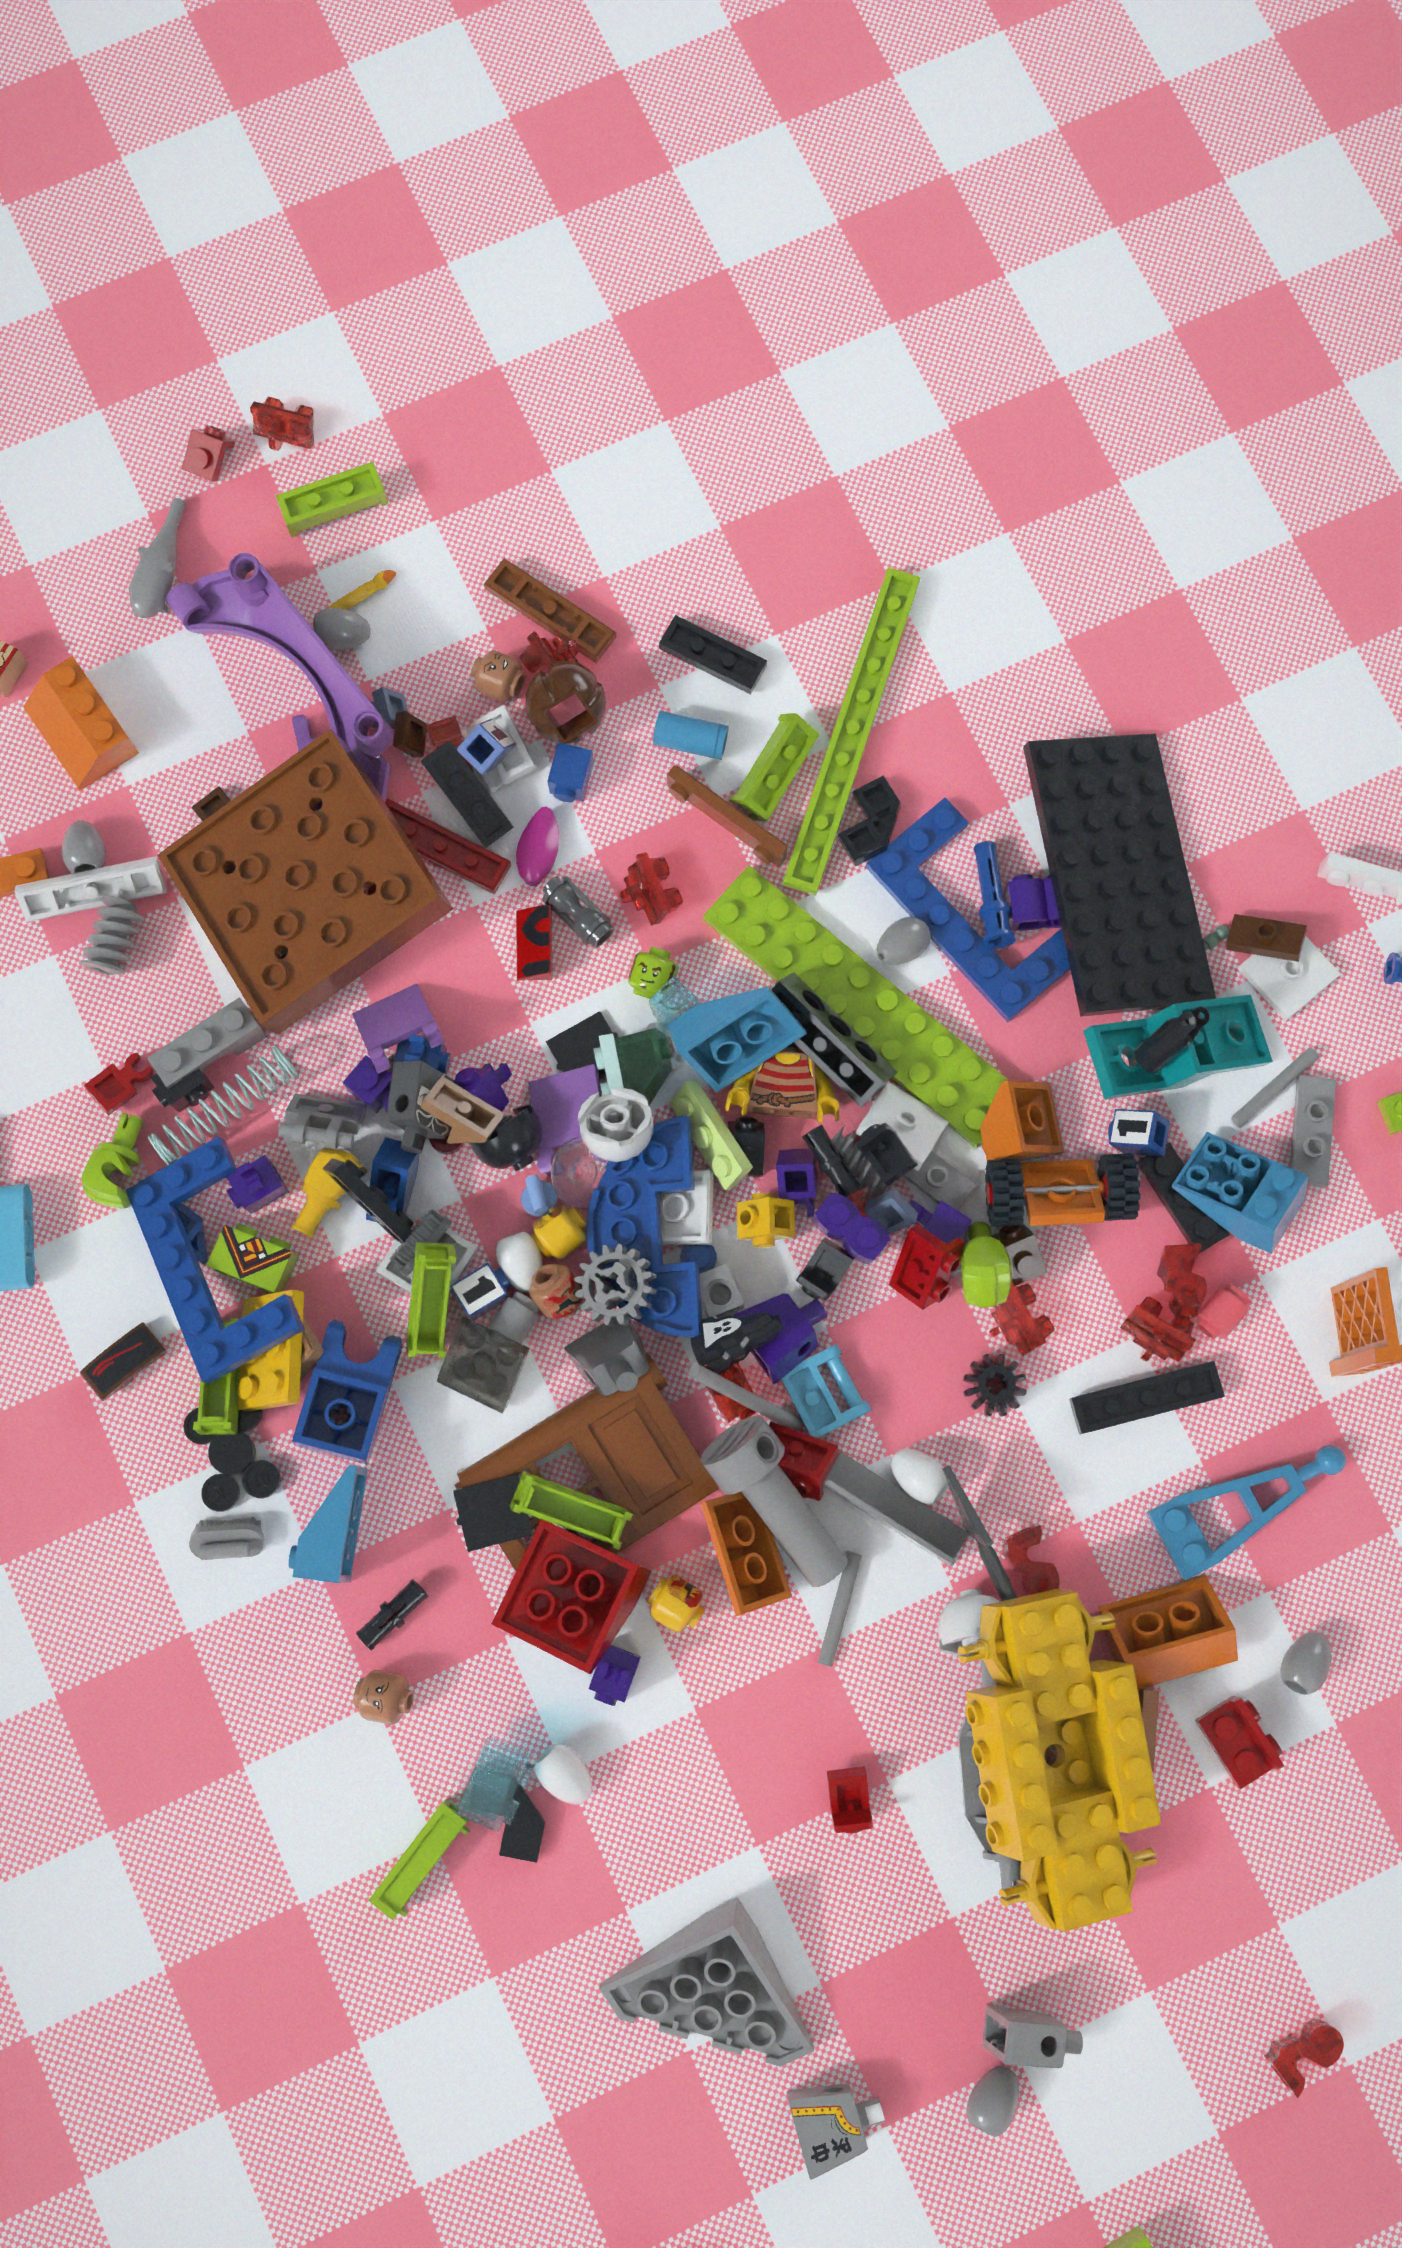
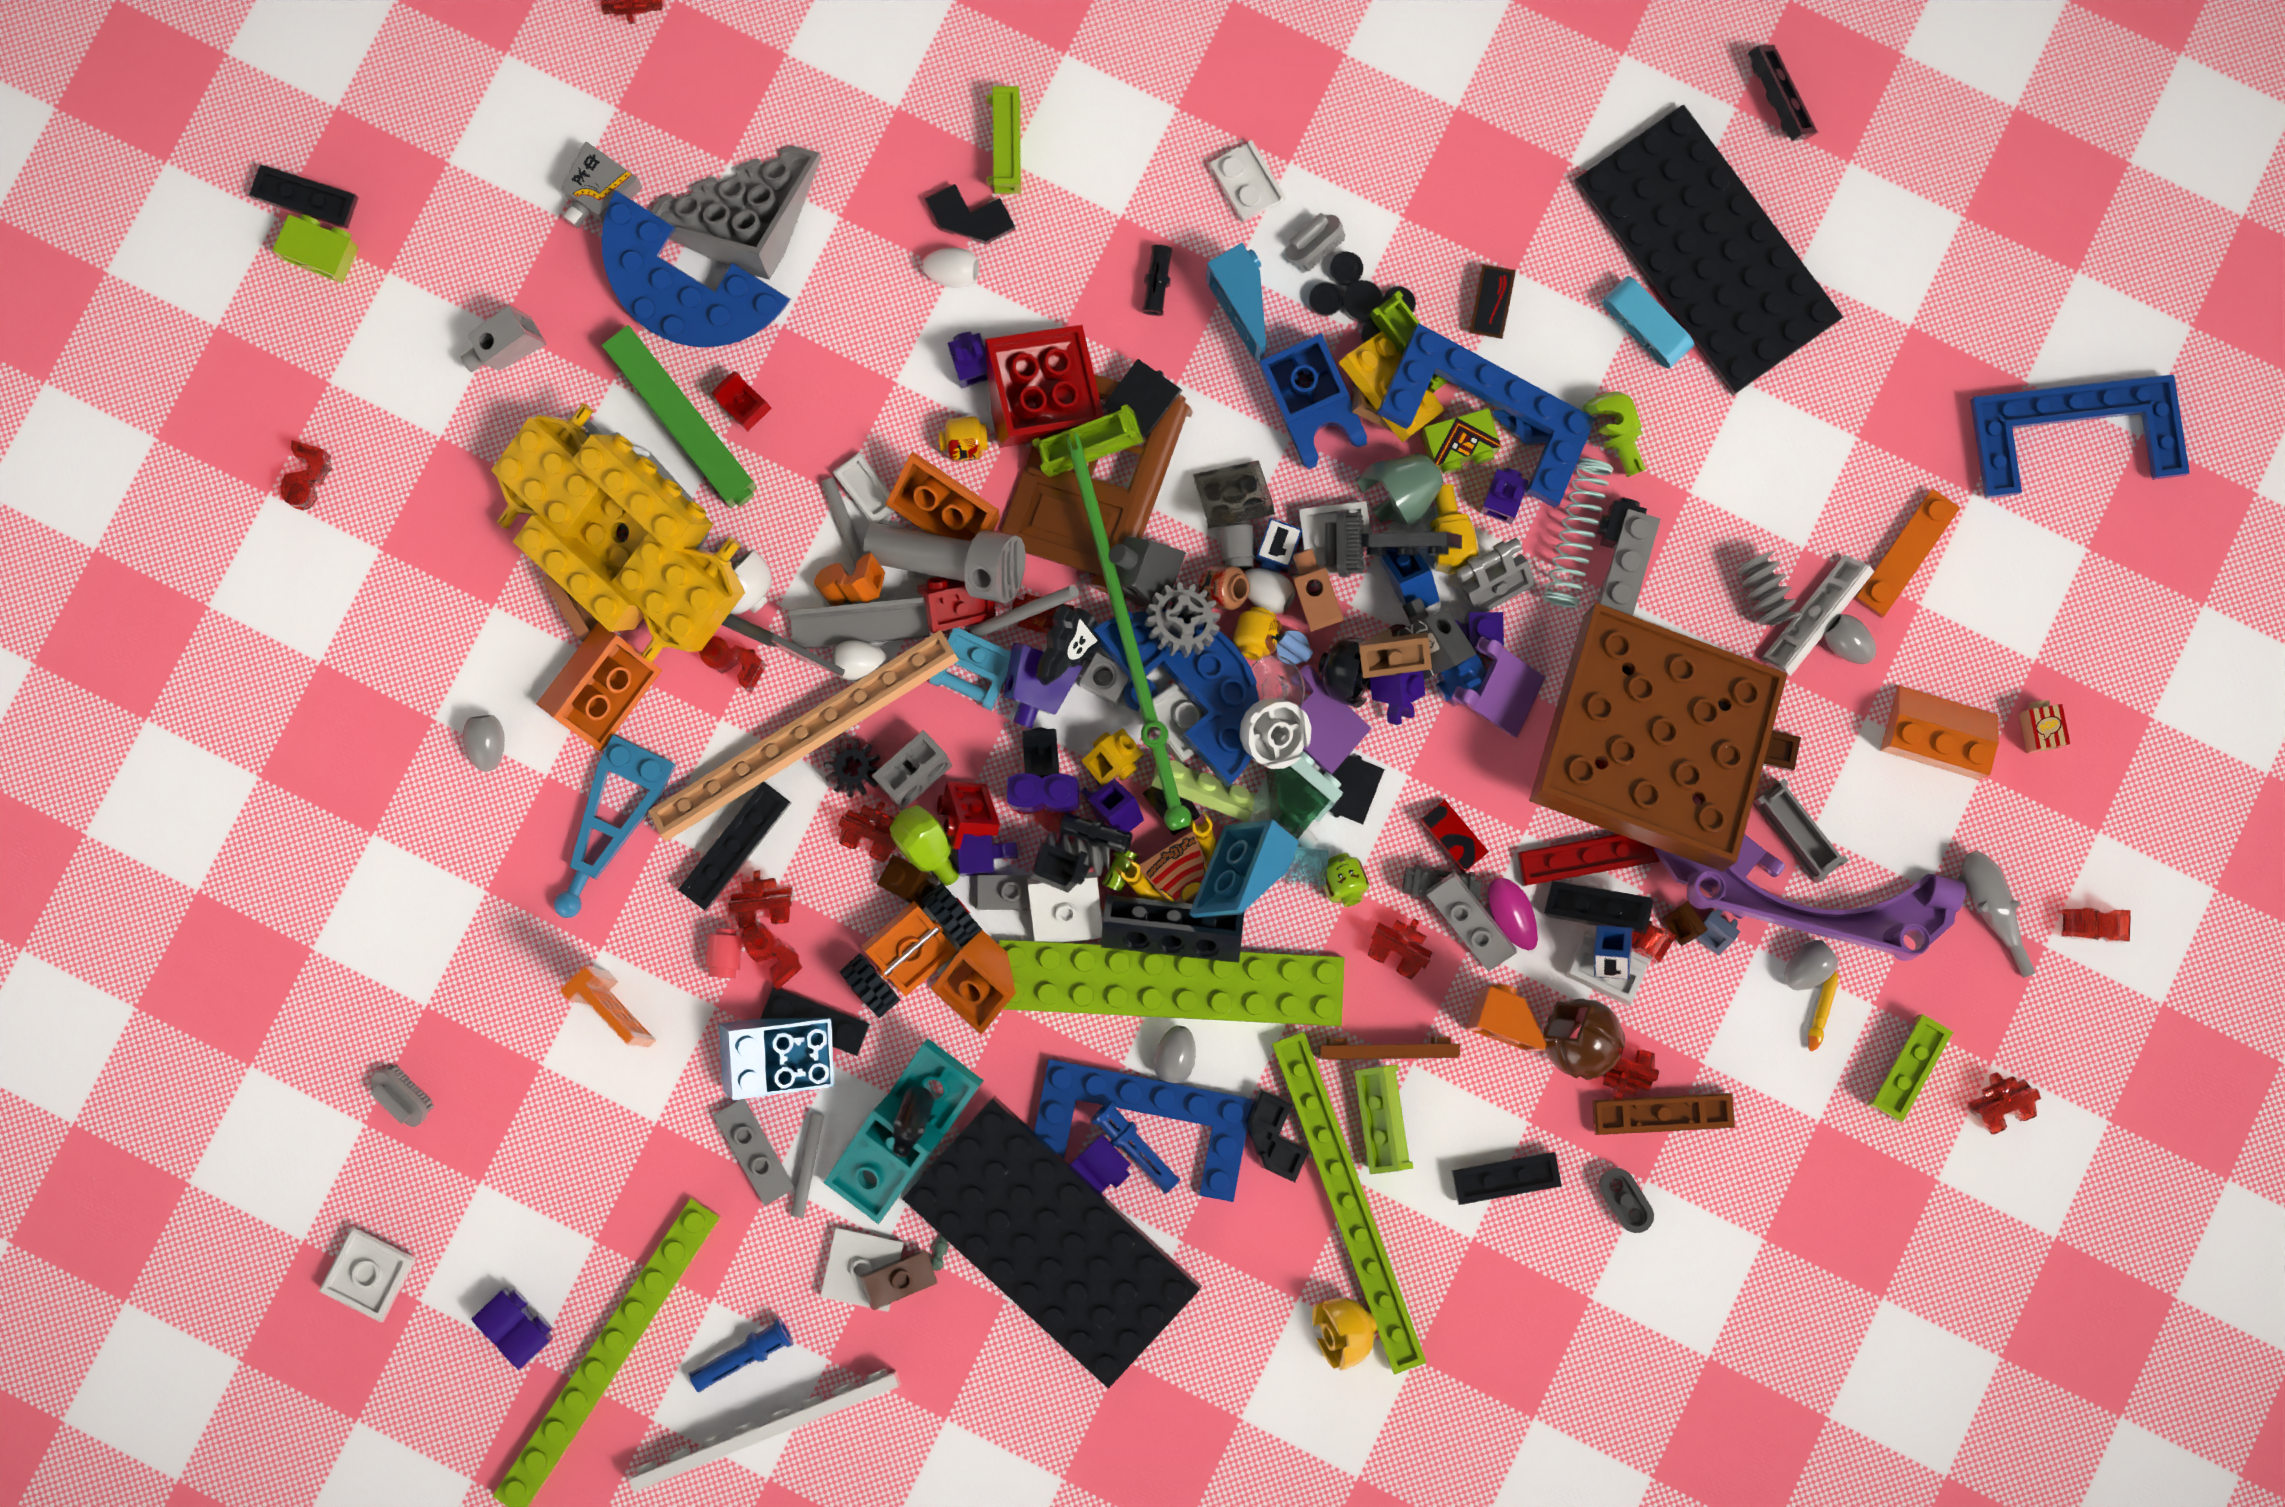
camera: 140 degrees right, 5 degrees up
(97, 498) = (2094, 925): none -> clear red leg
(115, 1086) = (1670, 484): red plate -> none
(206, 452) = (2043, 1031): bracket -> none
(239, 1644) = (1247, 181): none -> white plate
(257, 733) = (1799, 831): none -> light grey container
(327, 1253) = (1410, 483): none -> sand green piece
(383, 1697) = (1117, 221): nougat head -> none
(429, 1298) = (1307, 507): lime container -> none
(483, 1219) = (1320, 605): none -> nougat torso
(495, 1783) = (994, 223): clear light blue brick -> none
(498, 676) = (1656, 1025): nougat head -> none
(570, 773) = (1537, 988): blue brick -> none
(578, 862) = (1471, 921): none -> light grey plate
(618, 760) = (1505, 1018): none -> orange slope
(632, 572) = (1625, 1200): none -> dark grey plate
(690, 735) = (1469, 1095): dark azure pin -> none
(752, 1121) = (1177, 815): none -> bright green bar
(797, 1630) = (865, 488): none -> white tile
(831, 1126) = (1112, 879): none -> lime pin
(843, 1956) = (670, 299): none -> blue plate
(887, 1555) = (862, 585): none -> orange leg
(891, 1211) = (1024, 831): sand blue plate -> none
(916, 1831) = (680, 417): none -> bright green brick
(934, 633) = (1346, 1331): none -> yellow cylinder
(946, 1340) = (912, 770): none -> light grey brick
(994, 2101) = (497, 283): light grey animal -> none
(1018, 1445) = (803, 735): none -> light nougat plate
(1139, 1132) = (884, 1041): brick -> none
(1240, 1741) = (496, 651): red bracket -> none

